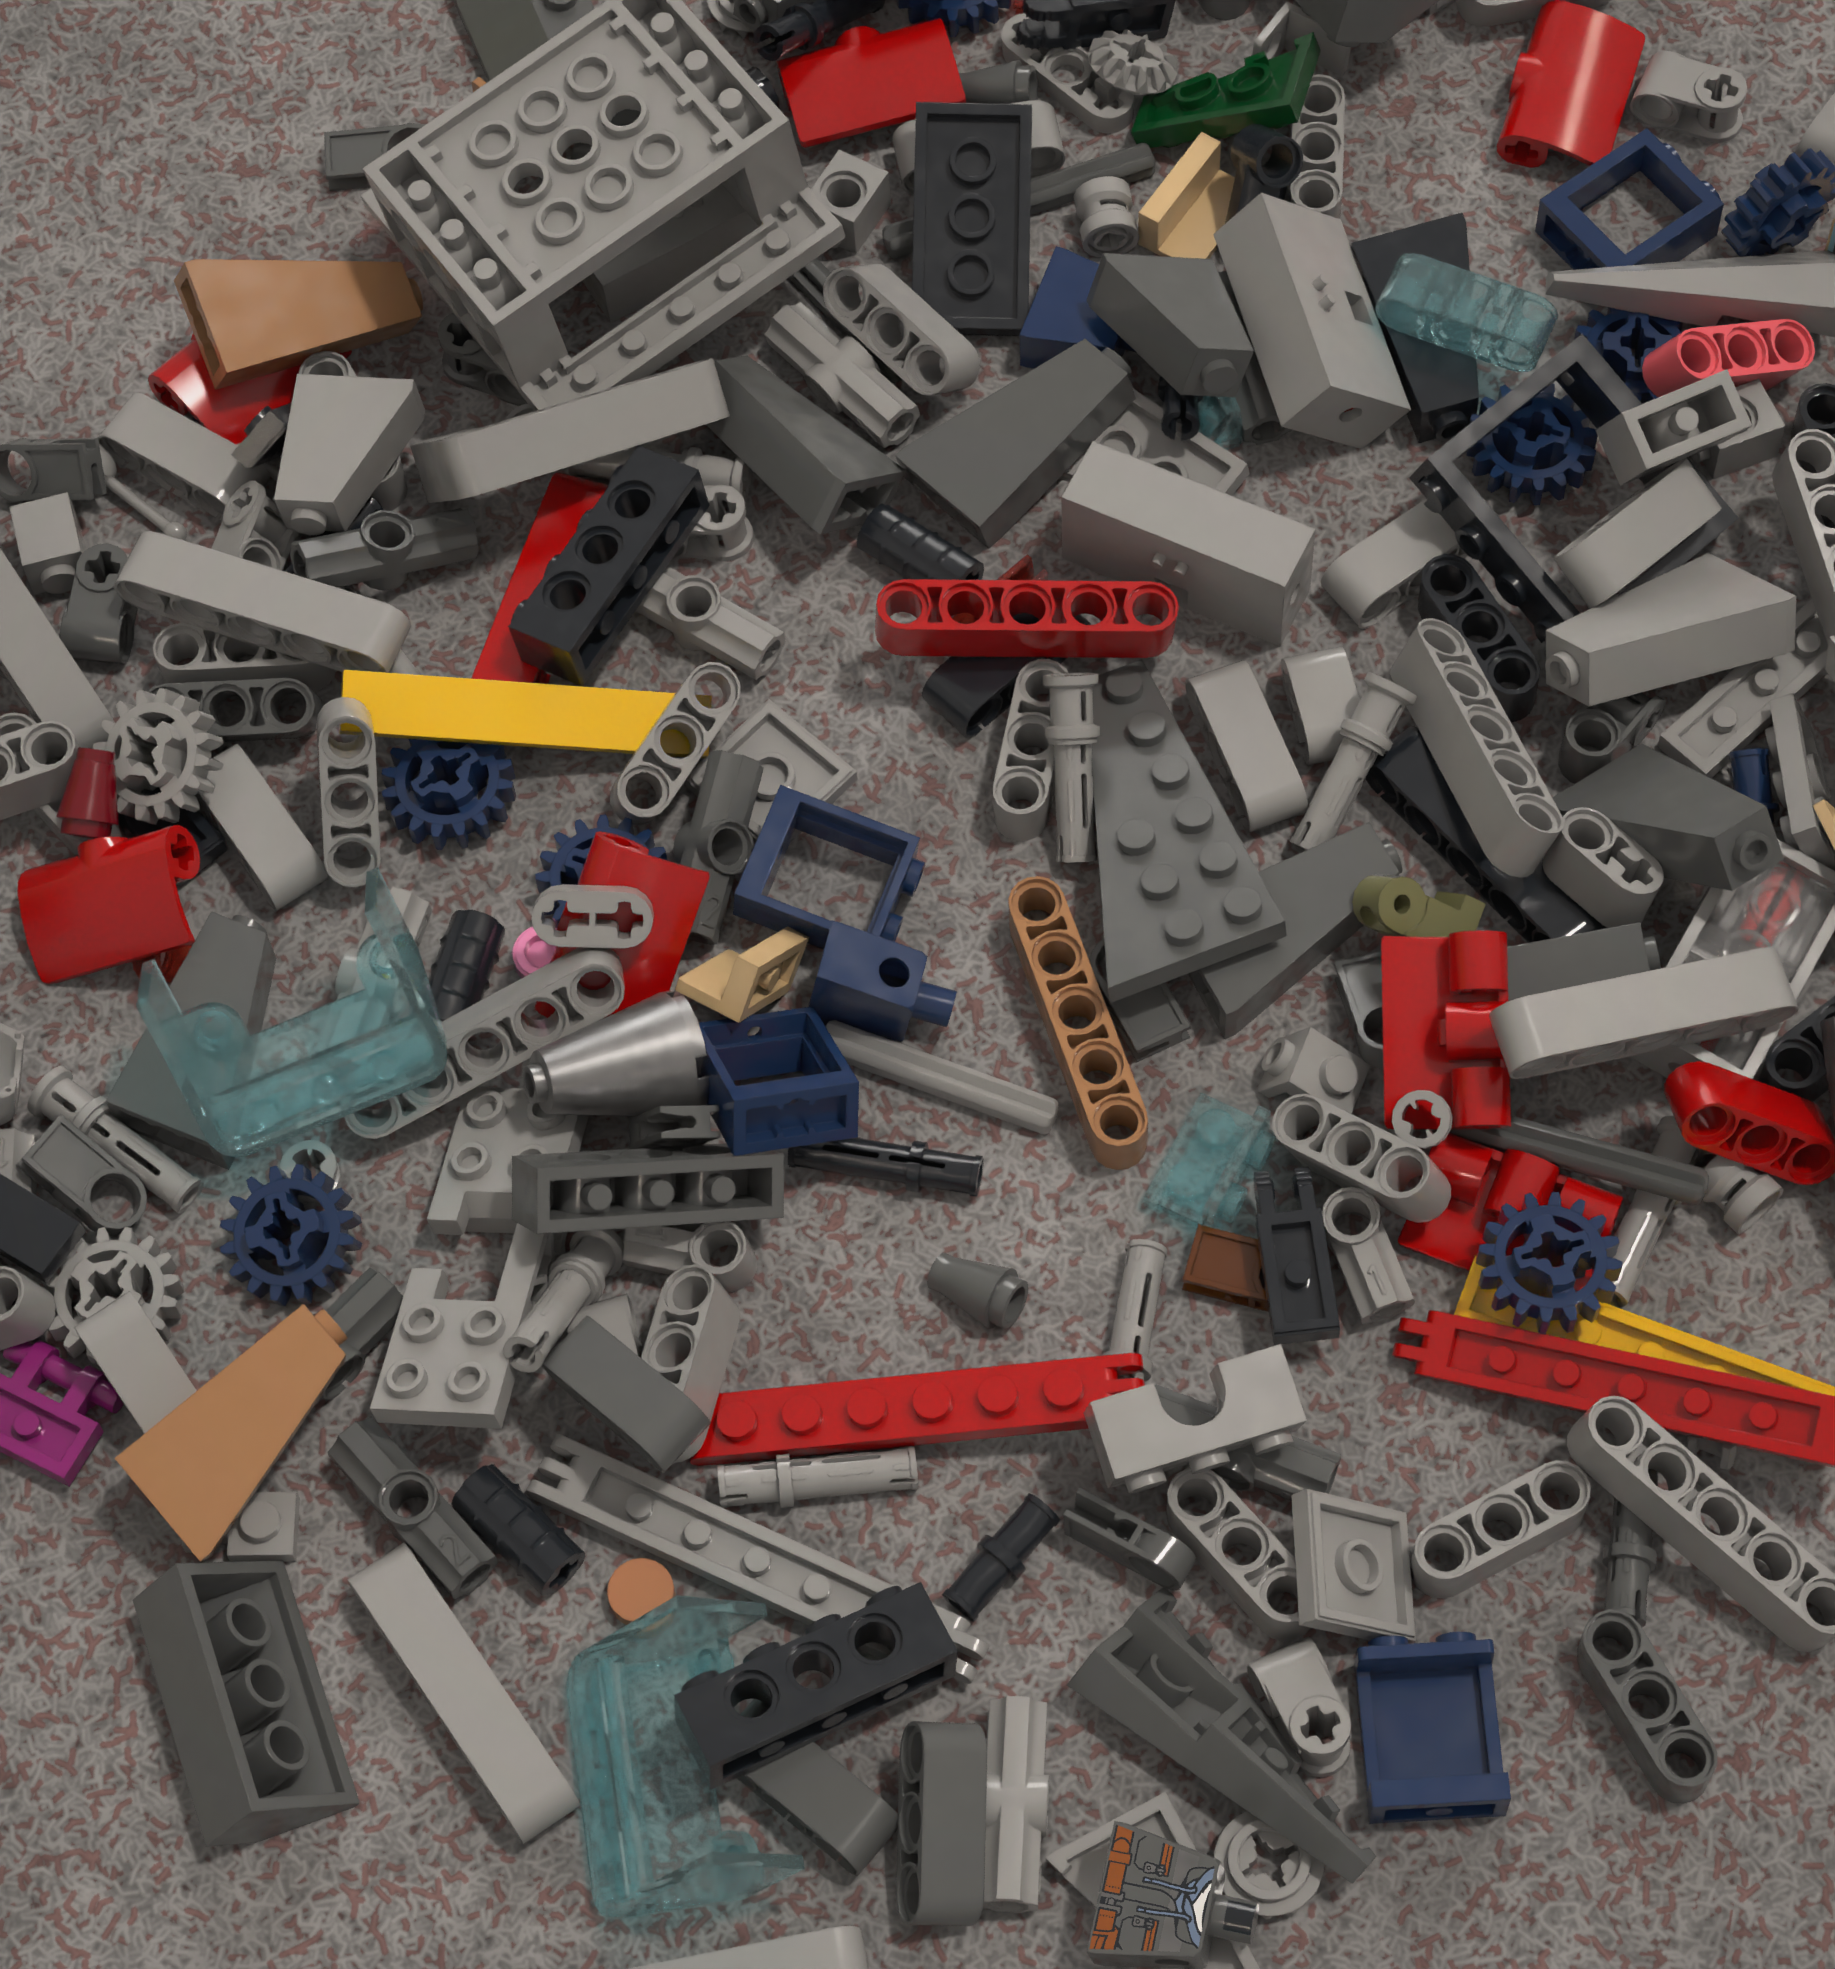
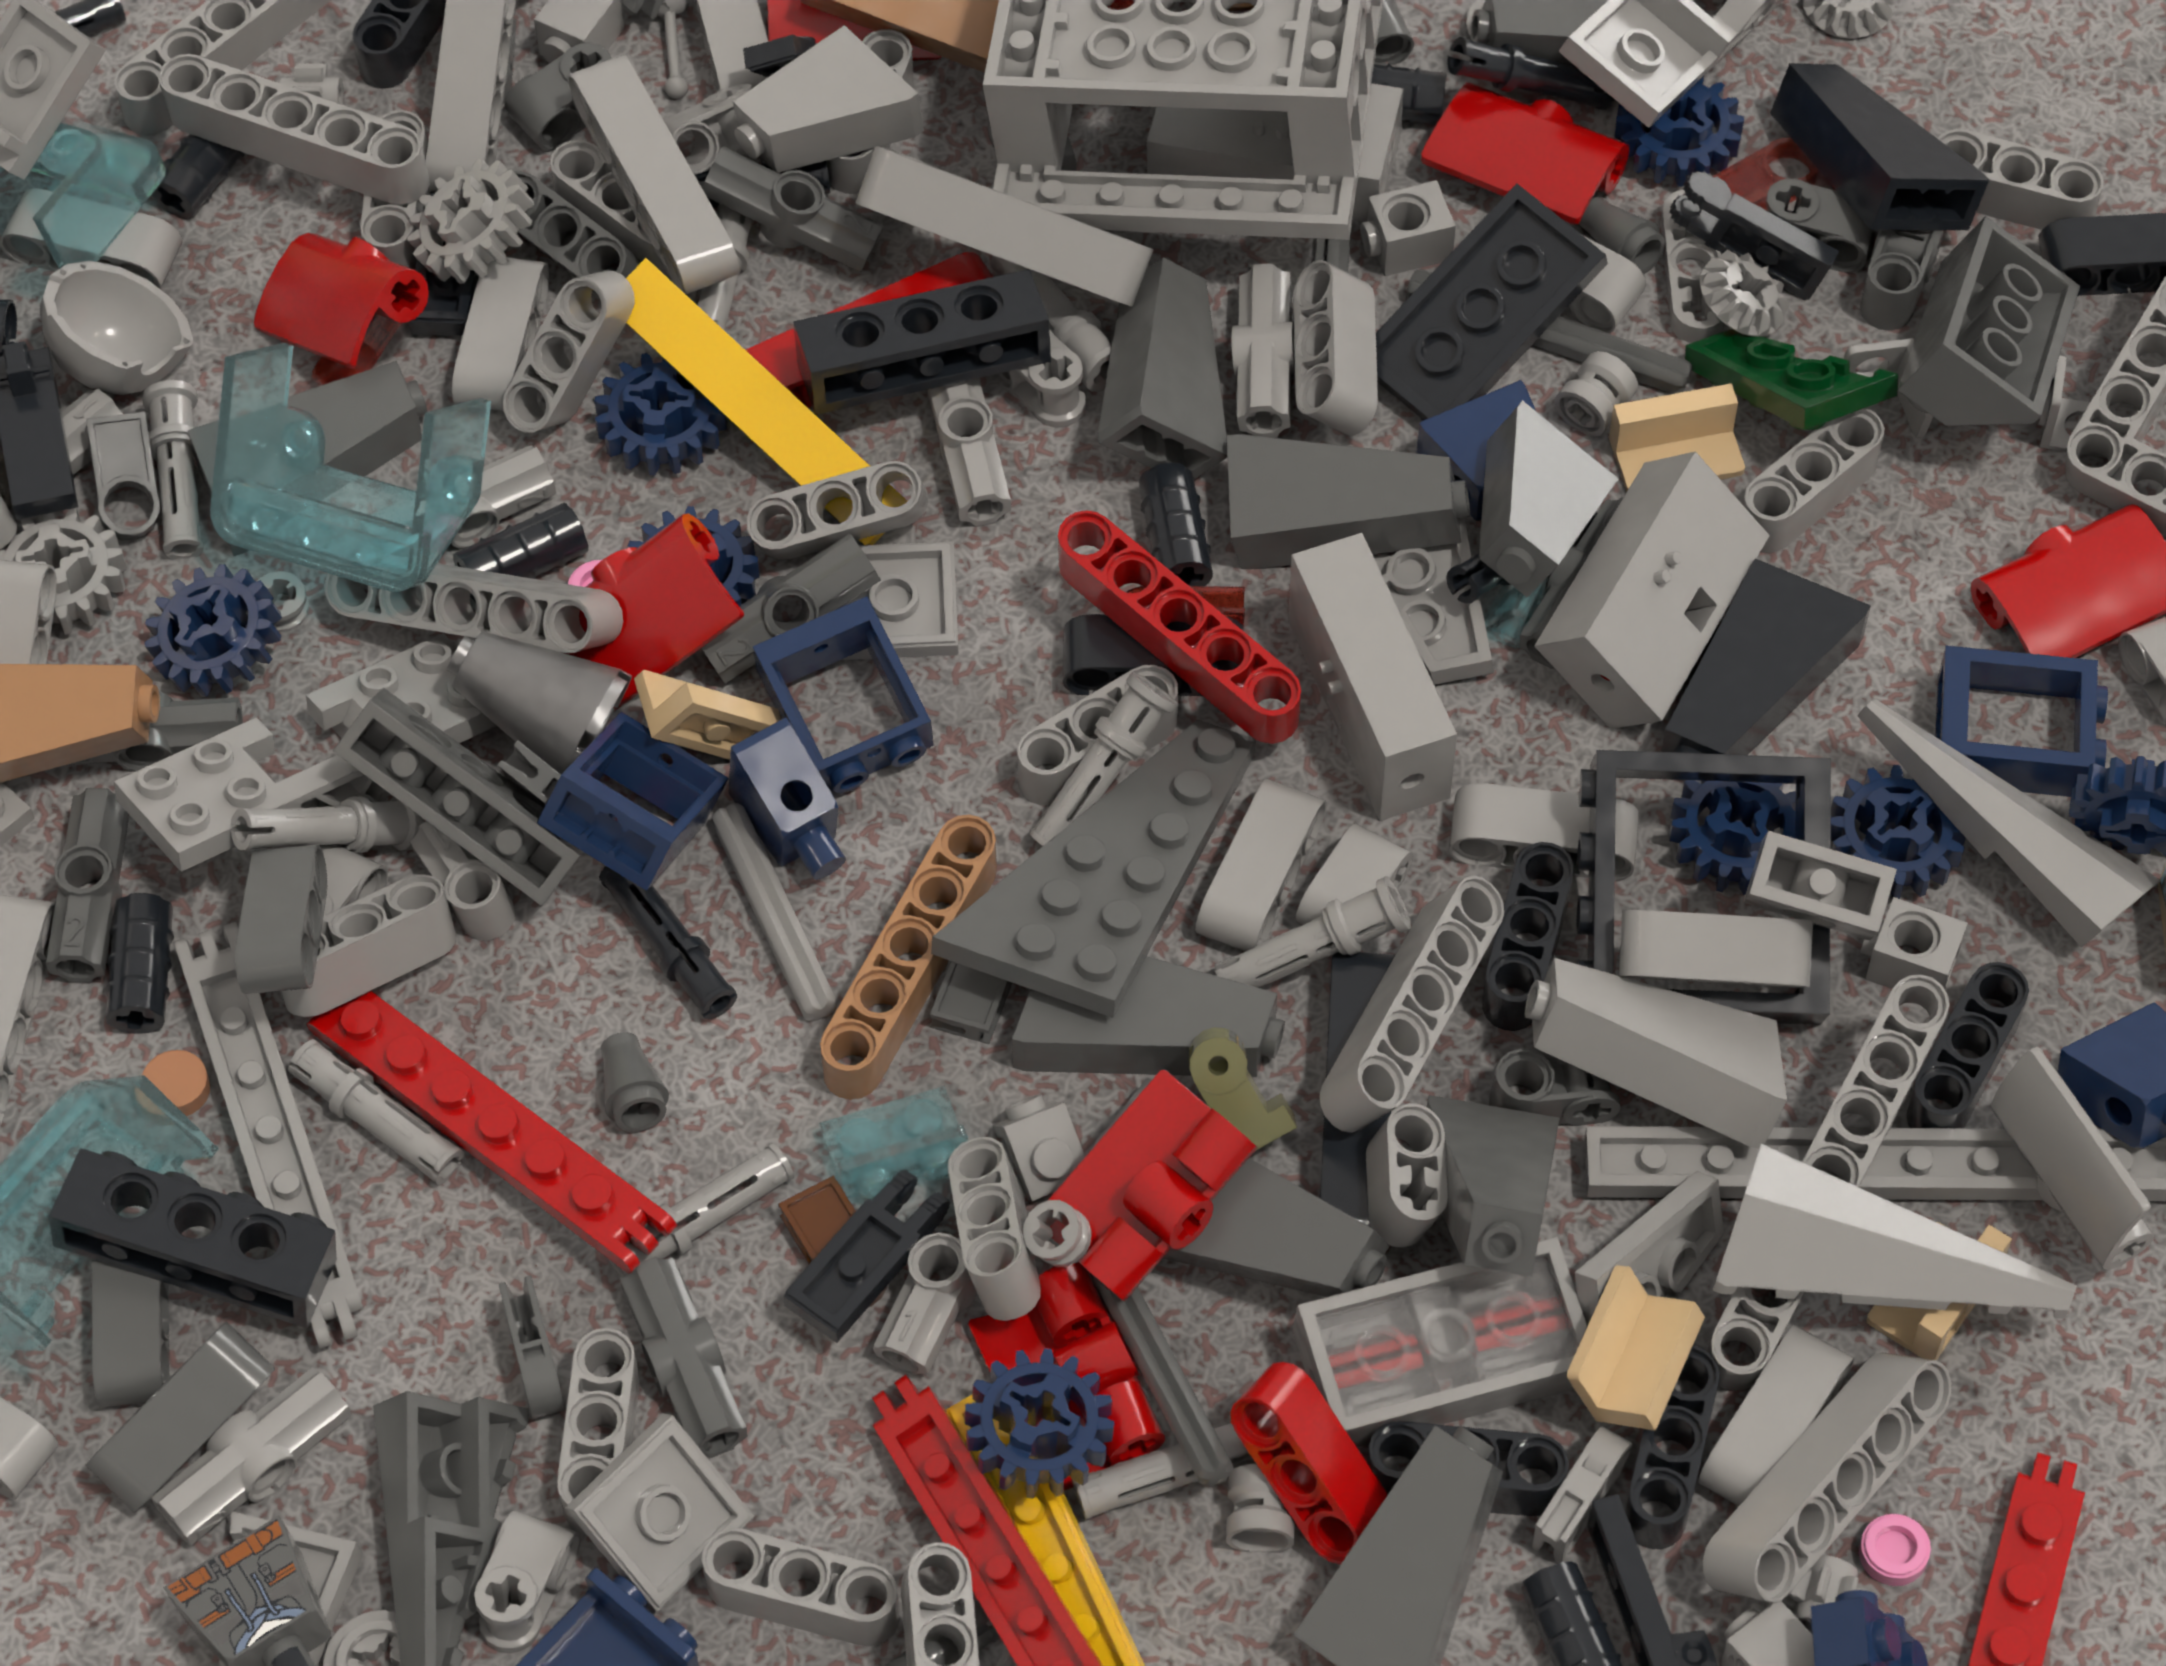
camera: 40 degrees right, 5 degrees down
(90, 795) = (391, 208): dark red cone -> none
(592, 932) = (615, 581): light grey beam -> none
(1001, 1557) = (435, 1281): black pin -> none
(1142, 1441) = (699, 1323): light grey arch -> none
(1254, 178) = (1734, 460): black piece -> none
(1466, 312) = (1775, 677): clear light blue beam -> none
(1643, 1012) = (1295, 1294): light grey beam -> none
(1748, 350) = (1986, 886): coral beam -> none
(1752, 776) = (1619, 1215): dark blue pin -> none

